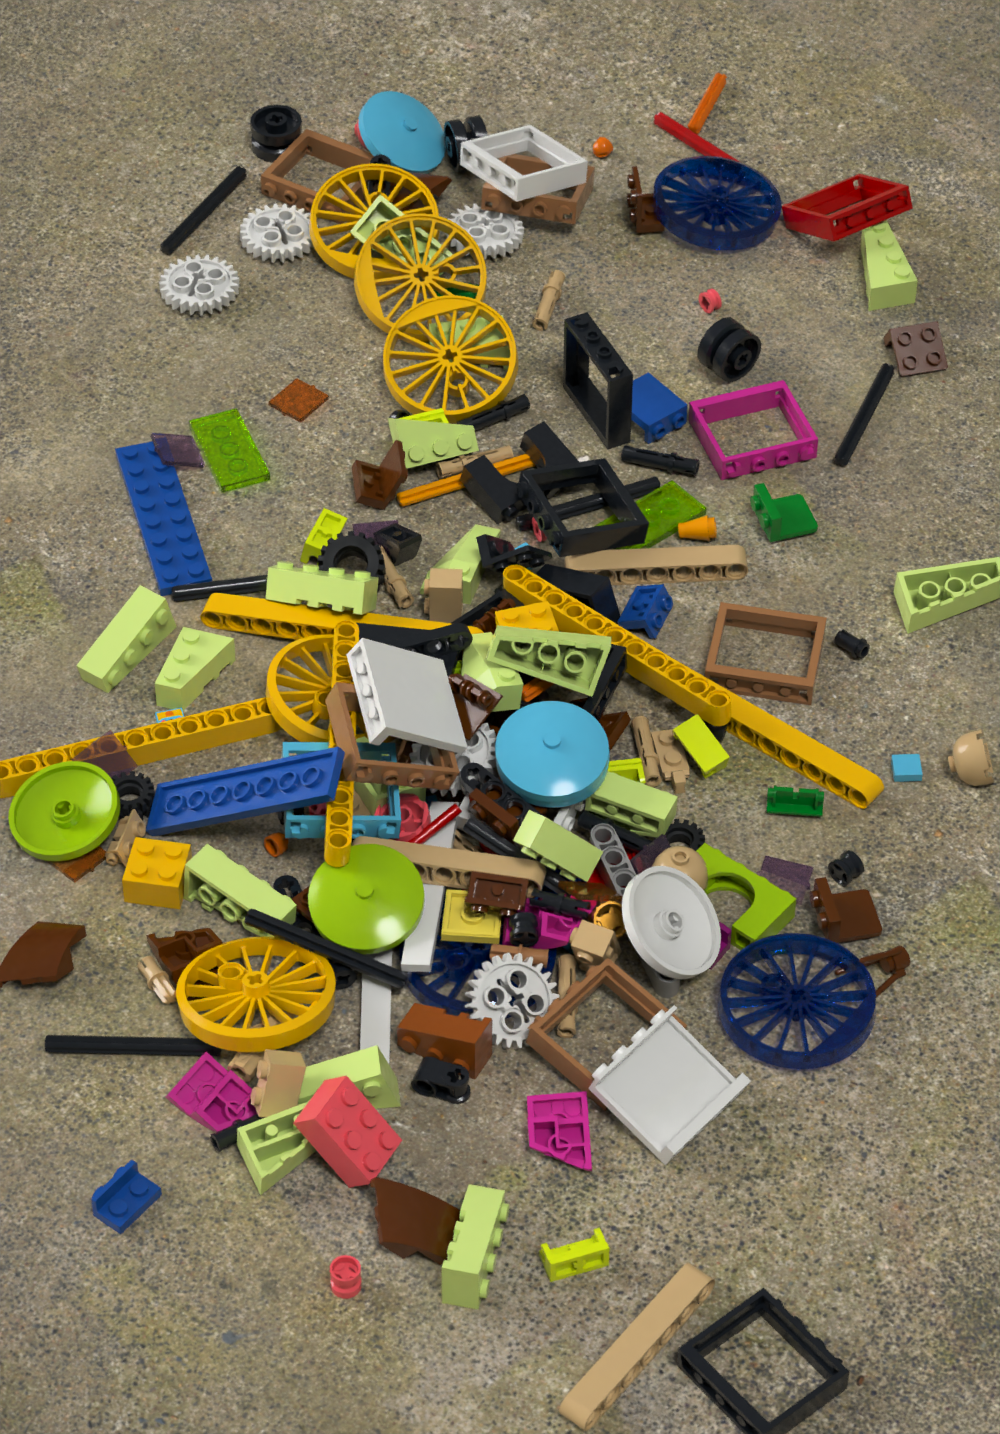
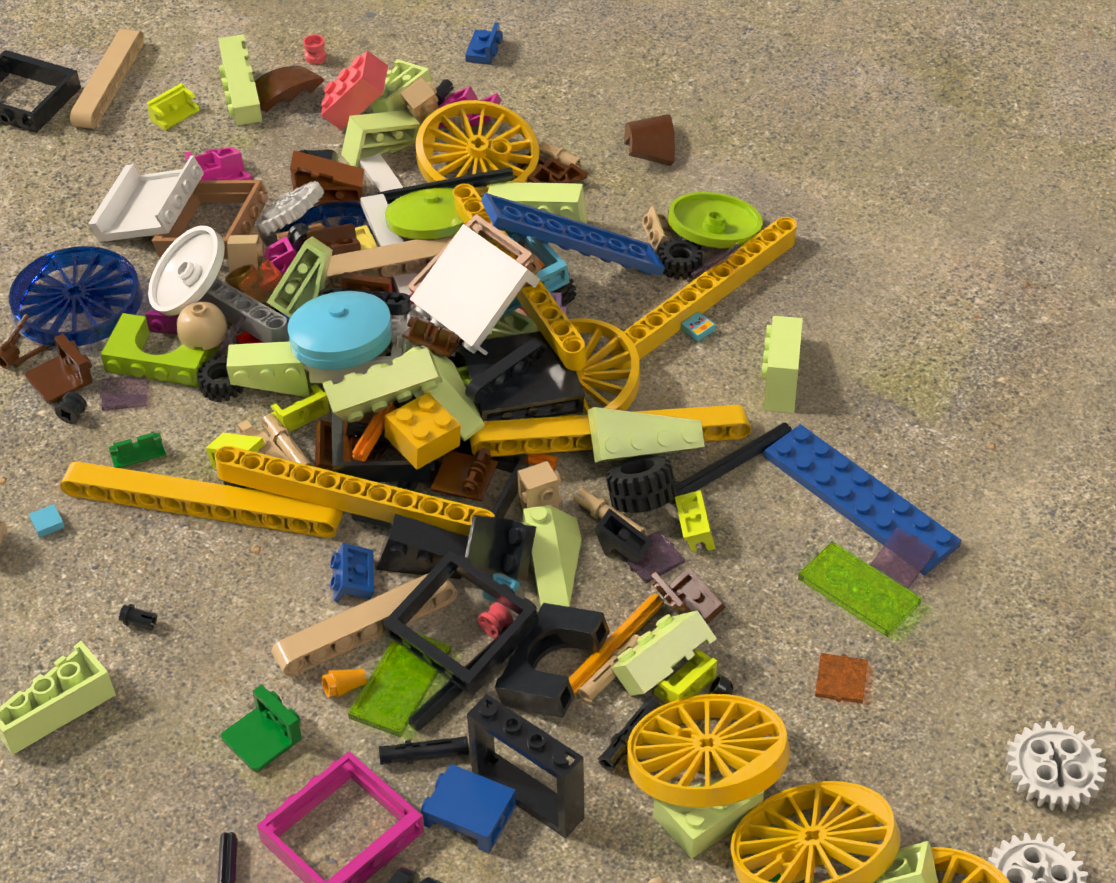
camera: 155 degrees right, 0 degrees up
(128, 1045) = (559, 115): black axle -> none
(156, 873) = (614, 209): yellow brick -> none
(192, 665) = (716, 364): yellowish green wedge -> none
(560, 904) = (280, 259): black pin -> none
(762, 683) = (210, 539): medium nougat window -> none

